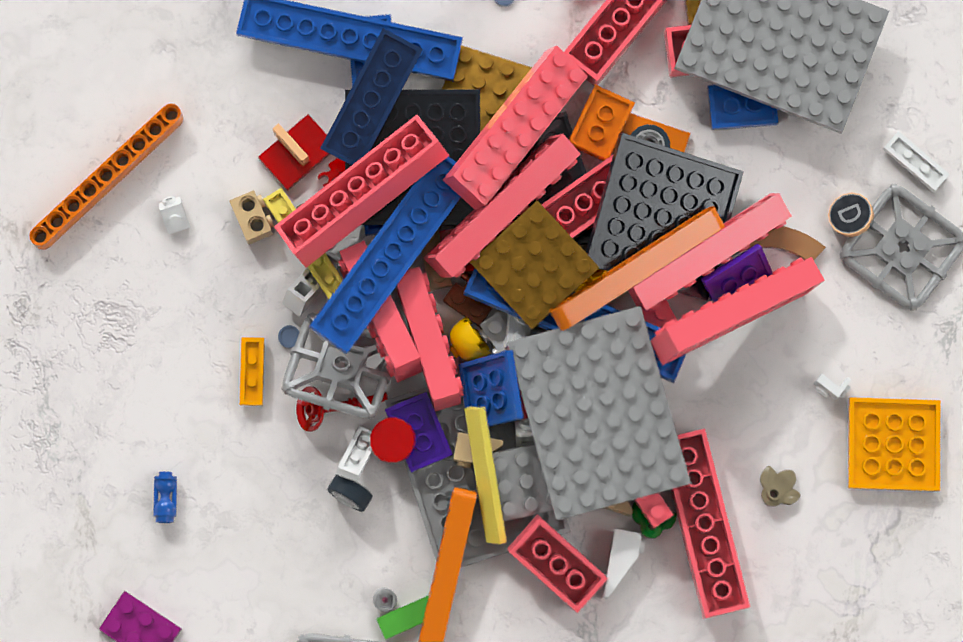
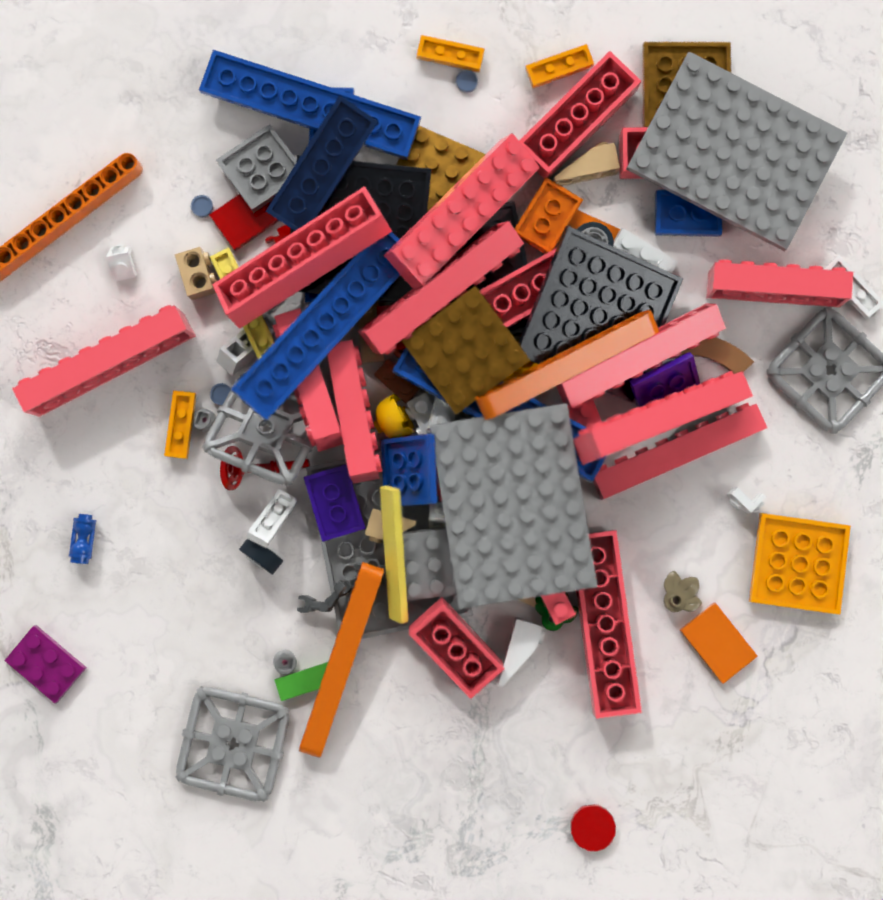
camera: 10 degrees right, 5 degrees up
(170, 315) = (103, 361): none -> coral brick
(248, 148) = (202, 206): none -> sand blue piece
(276, 364) = (204, 419): none -> light grey tile
(290, 144) = (240, 205): light nougat tile -> none
(304, 104) = (258, 167): none -> light grey plate
(392, 440) = (307, 508): red tile -> none
(435, 517) = (311, 604): none -> dark grey piece
(643, 65) = (594, 164): none -> tan slope
(697, 146) = (639, 248): none -> white plate
(759, 344) = (679, 451): none -> coral brick
(822, 533) = (718, 643): none -> orange tile
(839, 167) = (779, 284): none -> coral brick
(850, 214) = (783, 332): black tile -> none

